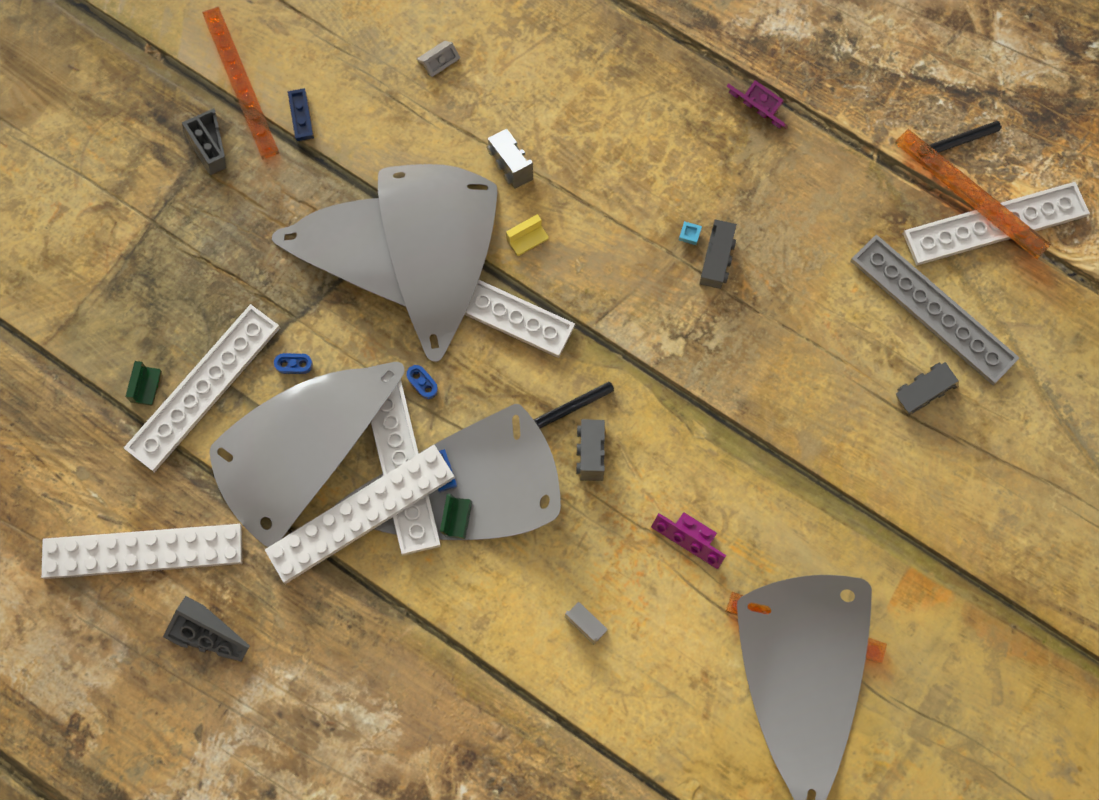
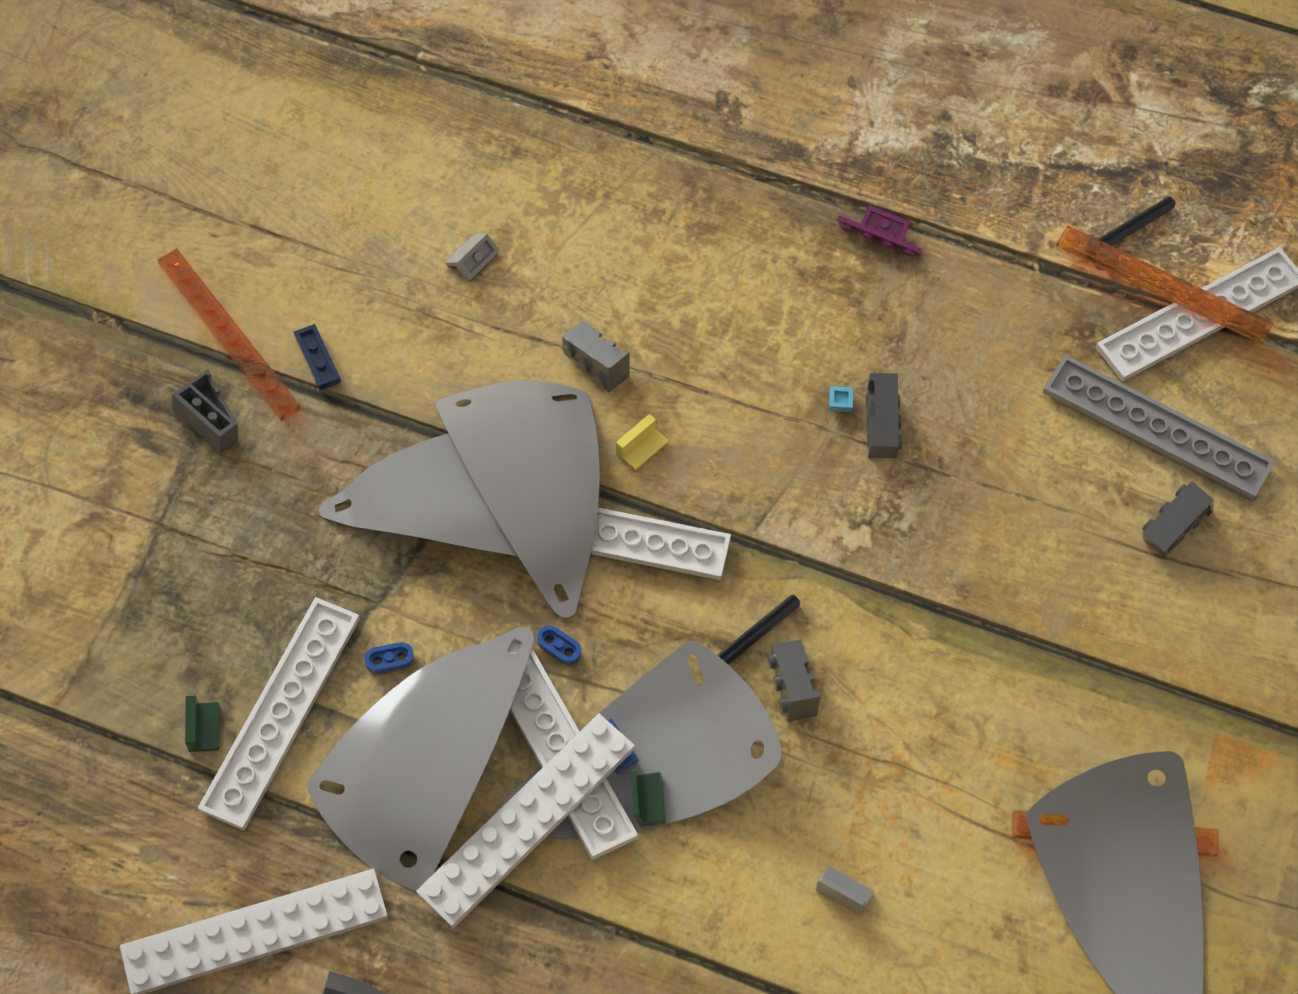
camera: 15 degrees left, 10 degrees down
(691, 536) = (945, 757): magenta bracket -> none

